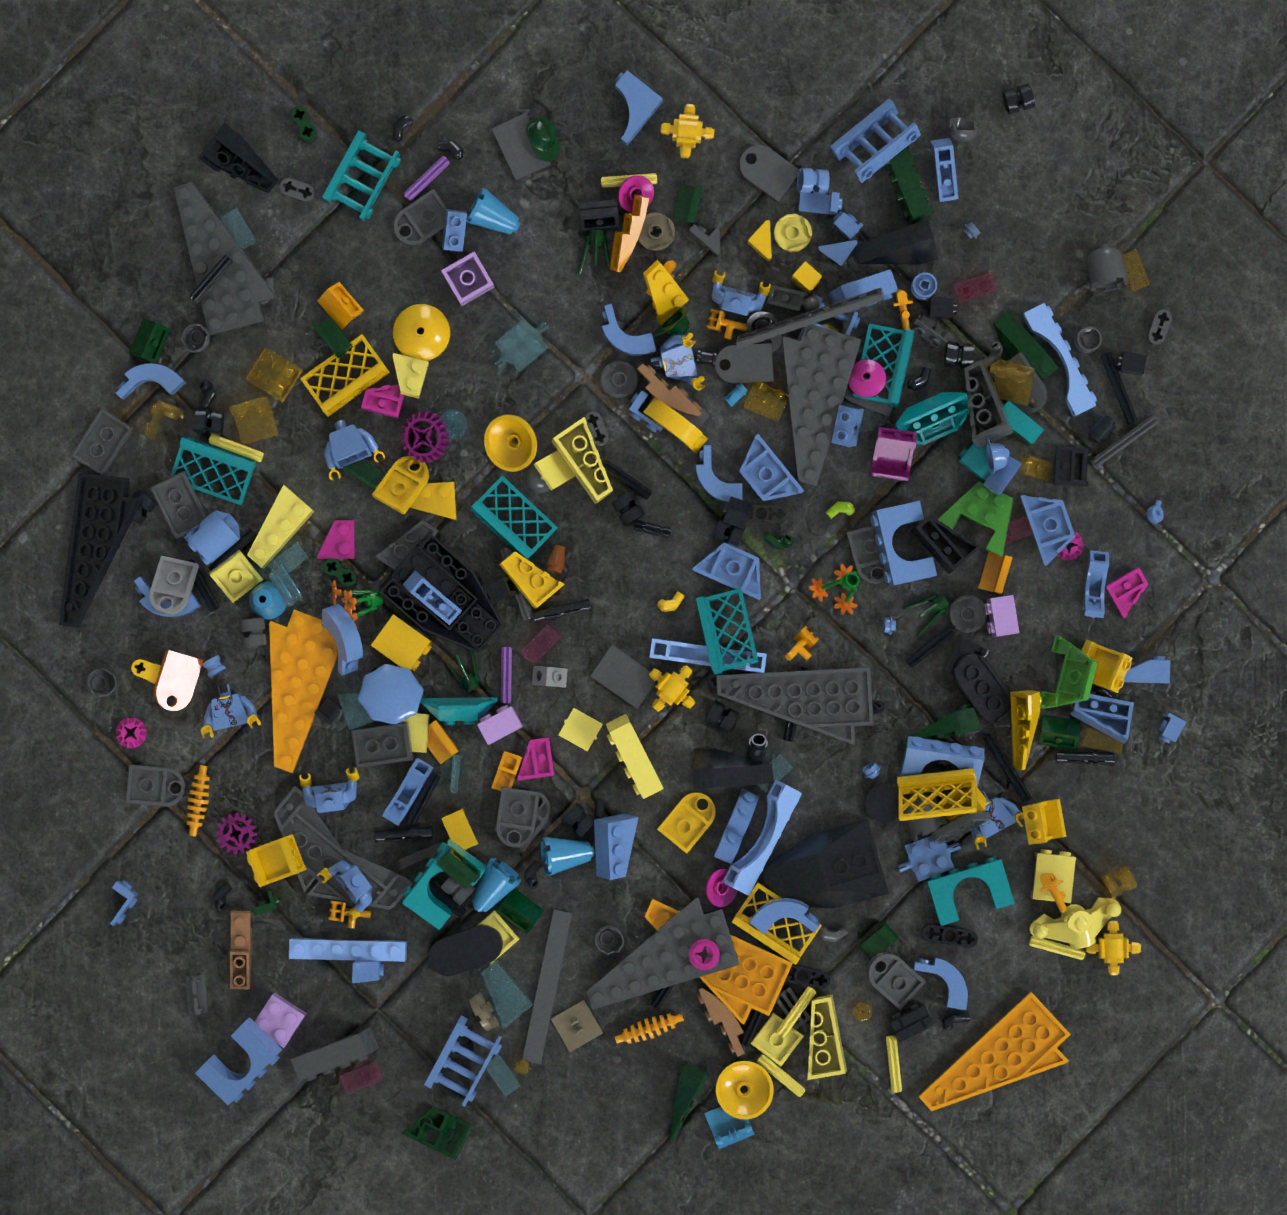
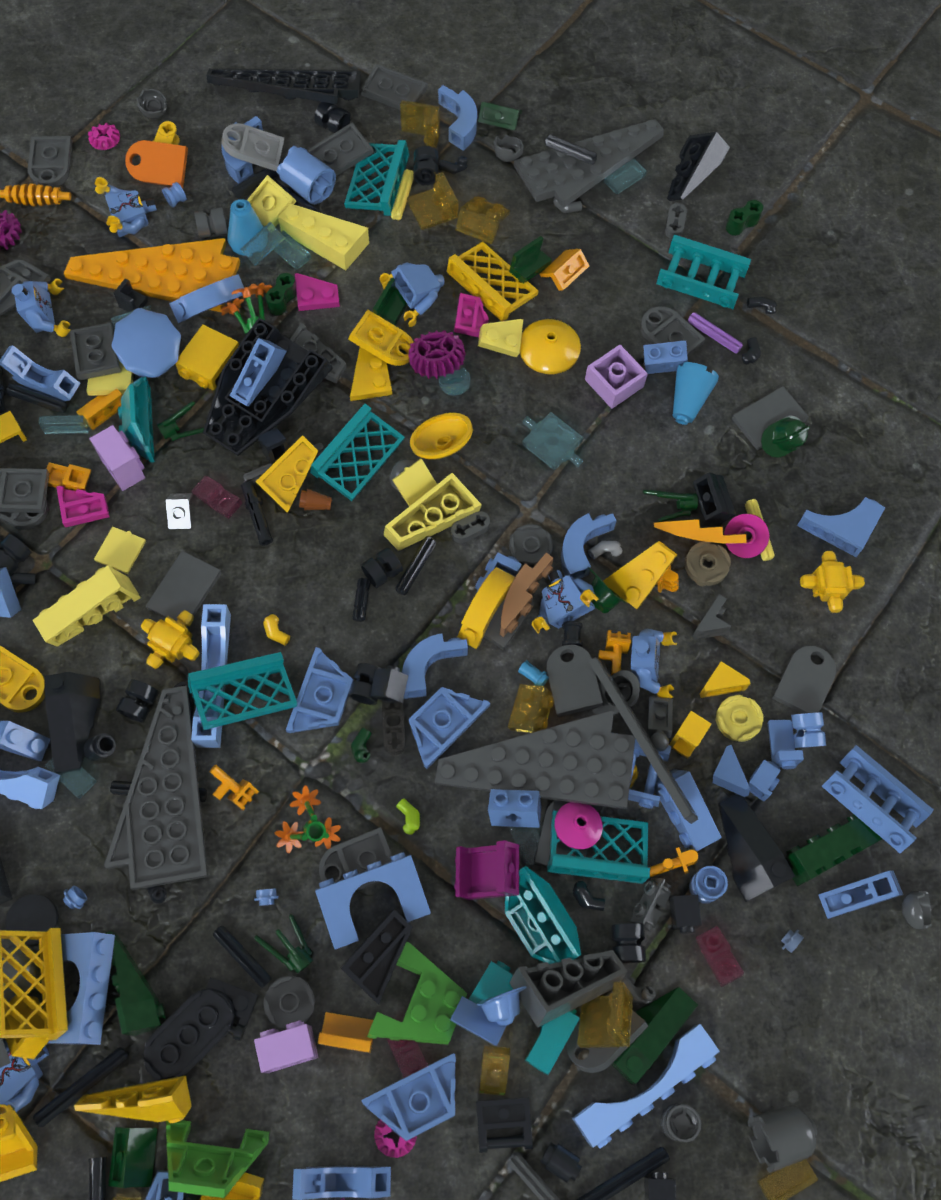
camera: 80 degrees right, 20 degrees down
(506, 671) = (179, 465): medium lavender axle -> none
(628, 316) = (605, 546): none -> light grey arm
(687, 204) = (747, 596): dark green panel -> none

